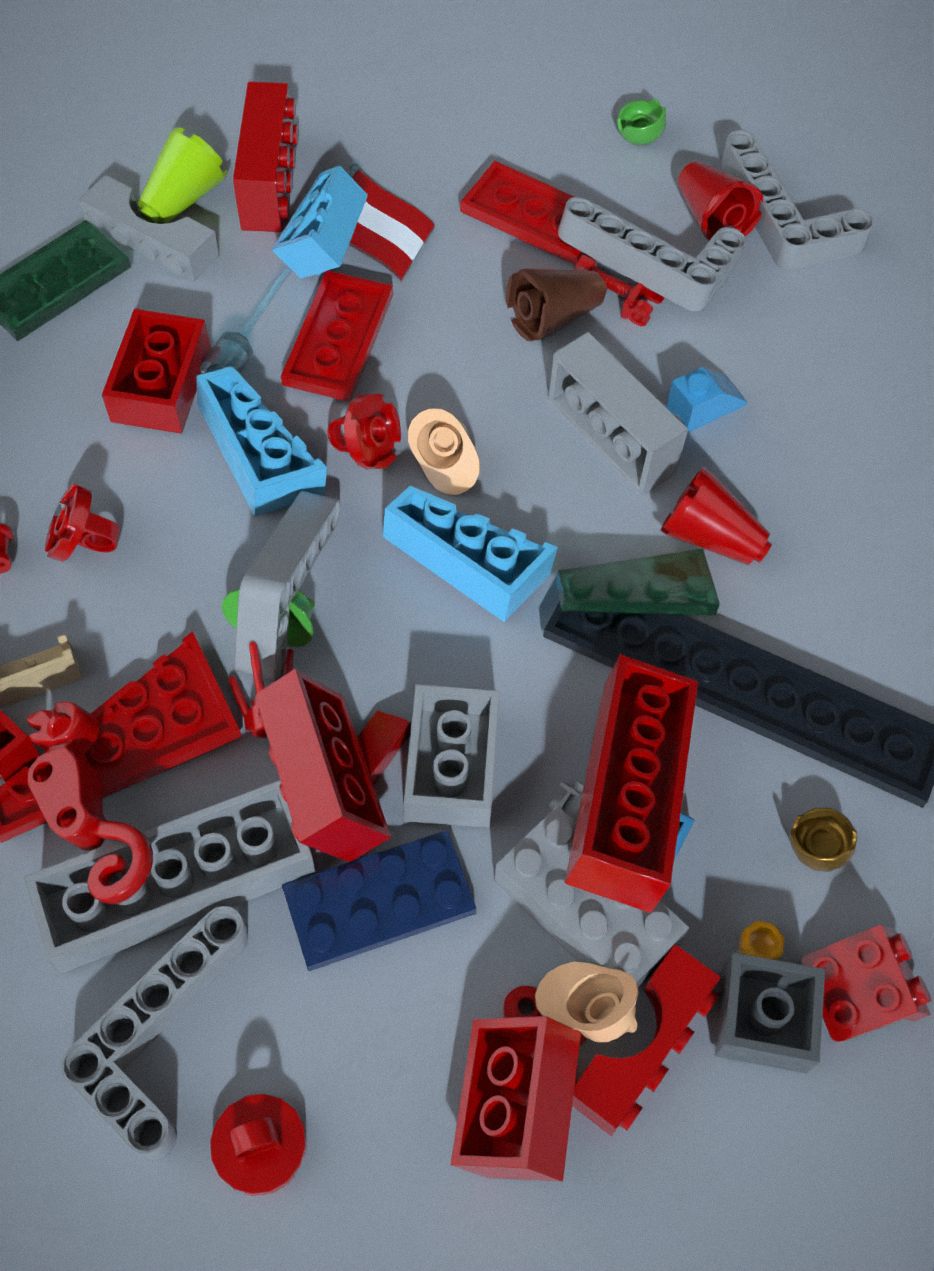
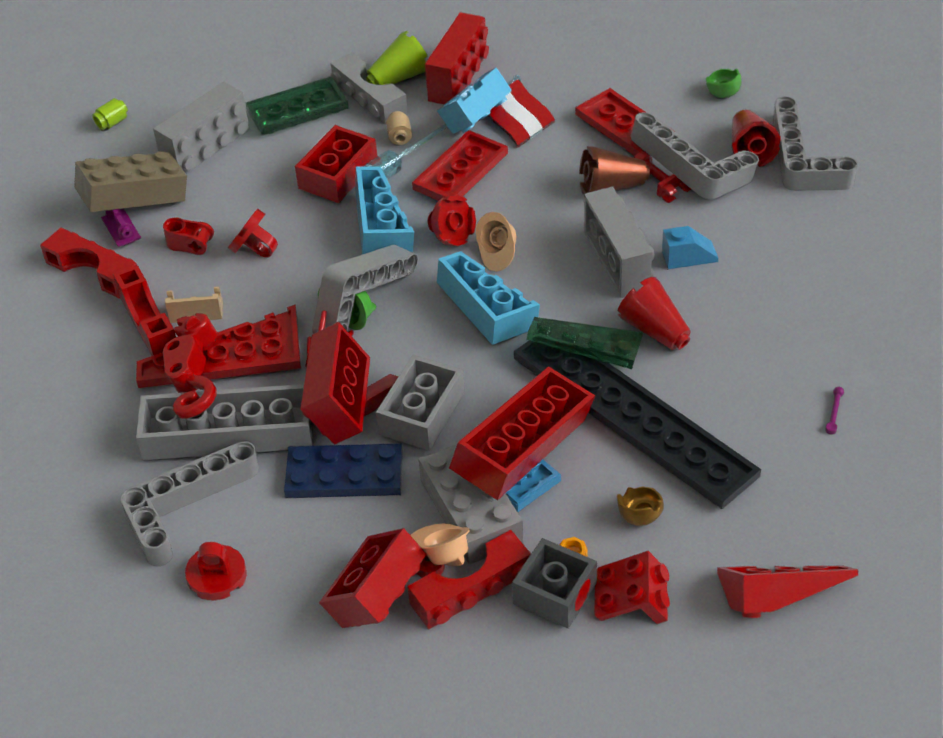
camera: 25 degrees right, 15 degrees down
(222, 287) = (399, 128): none -> tan brick

